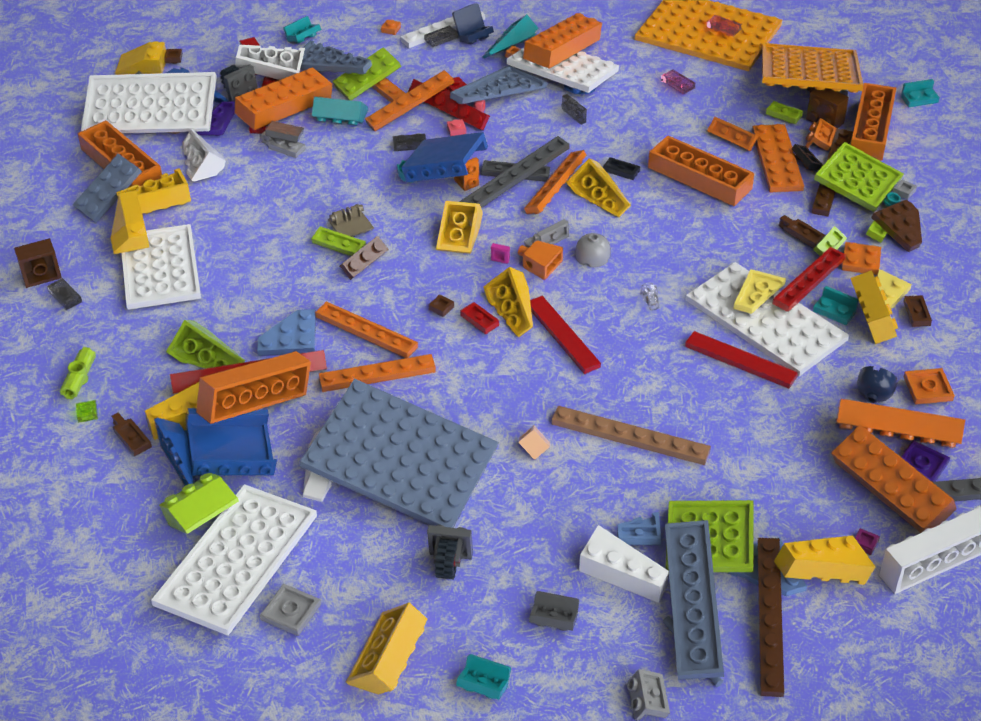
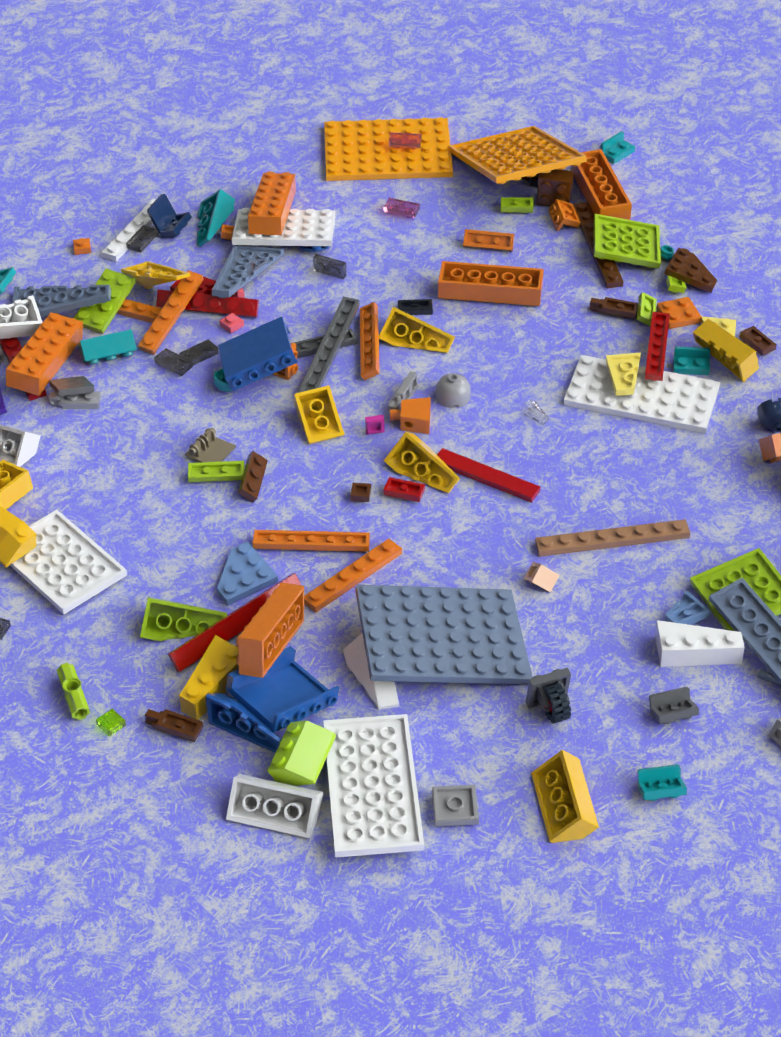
camera: 30 degrees left, 0 degrees up
(146, 537) = (274, 805): none -> white slope
(381, 141) = (173, 362): none -> clear smoke plate
(416, 64) = (151, 274): none -> yellow wedge
(741, 359) = (650, 437): red tile -> none
(777, 158) = (543, 249): orange plate -> none
(807, 157) = (563, 237): black plate -> none
(905, 189) = (669, 238): light grey plate -> none

